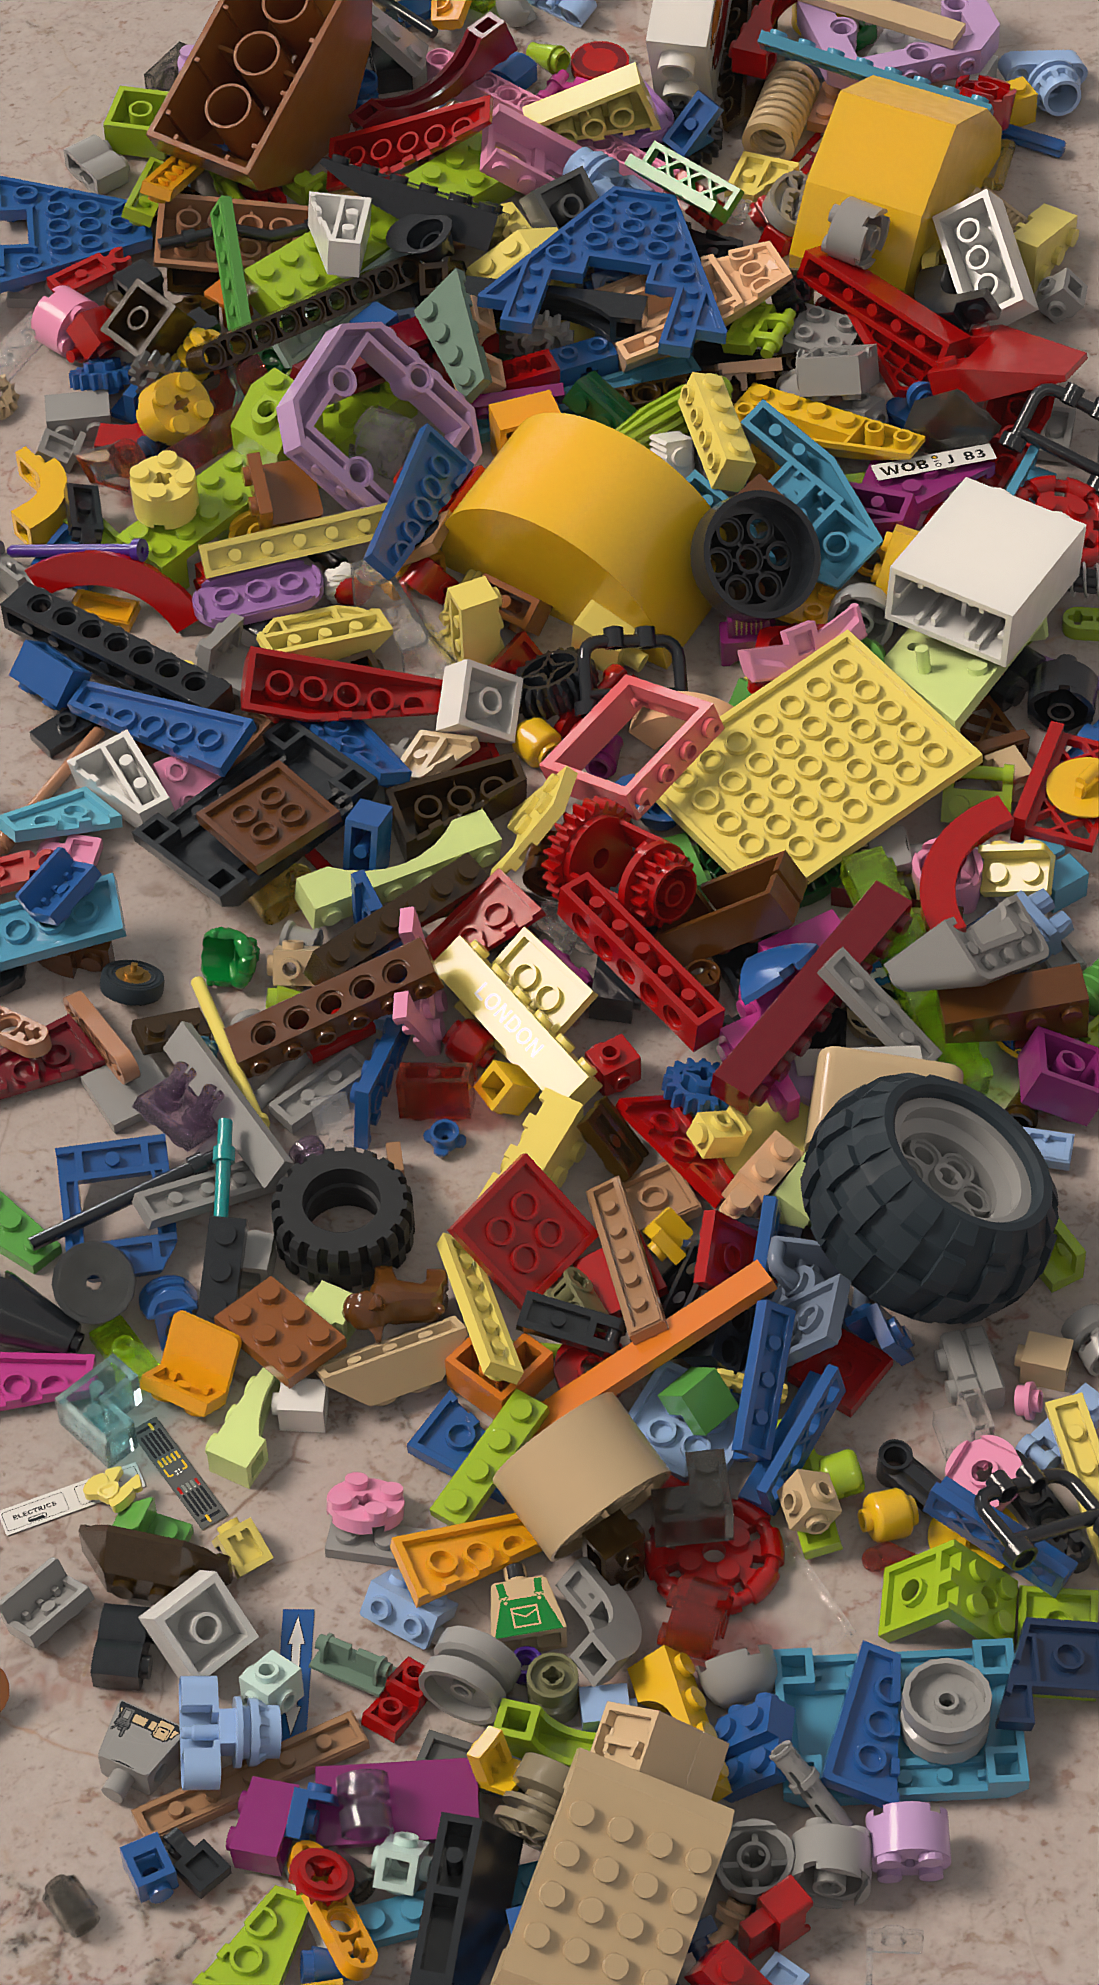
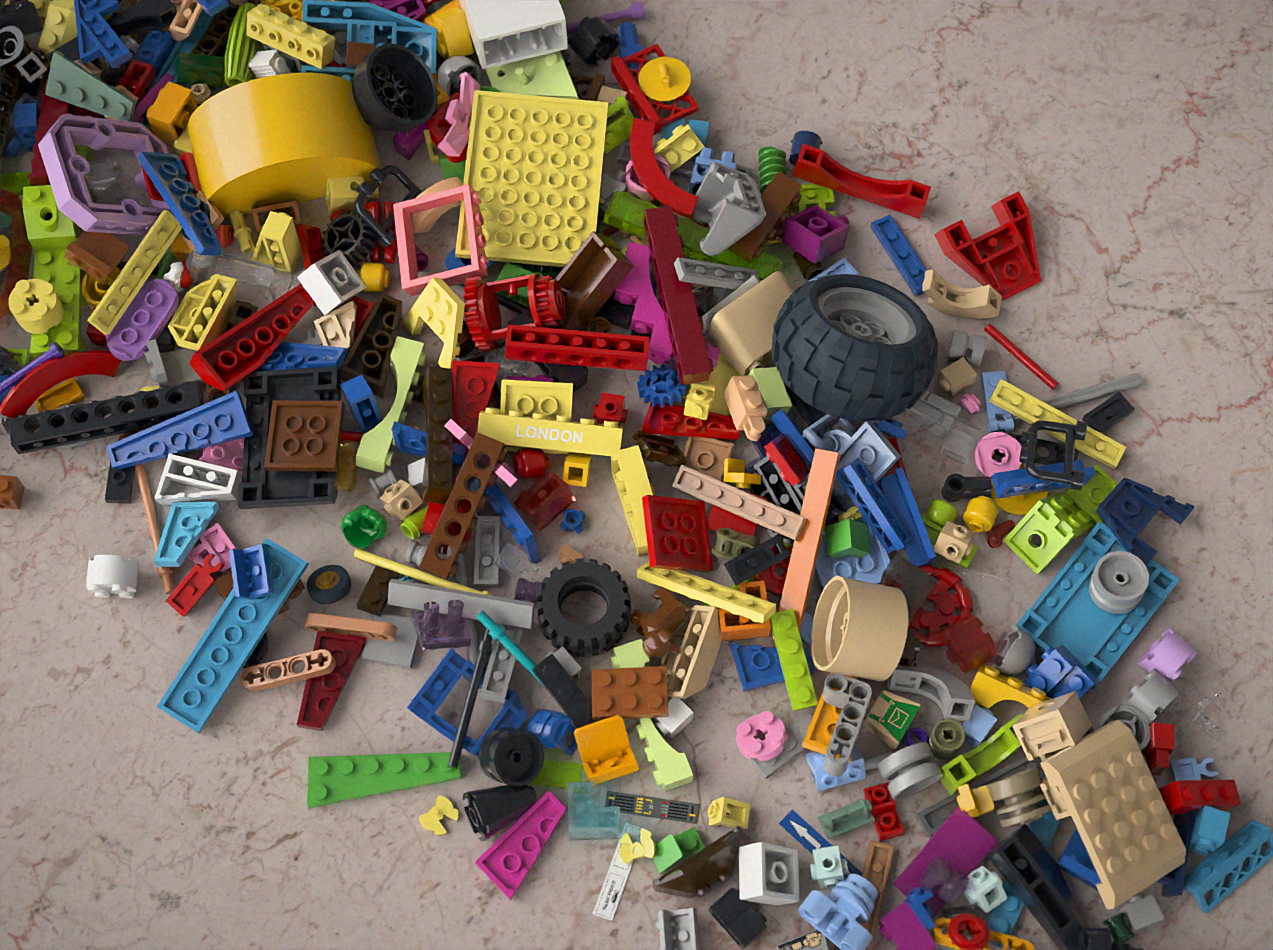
camera: 50 degrees left, 15 degrees up
(48, 674) = (80, 459): blue brick -> none
(482, 1555) = (845, 727): none -> light grey beam
(771, 967) = (643, 296): blue brick -> none
(806, 1782) = (1106, 674): light grey pin -> none
(866, 1735) = (1100, 631): blue wing -> none

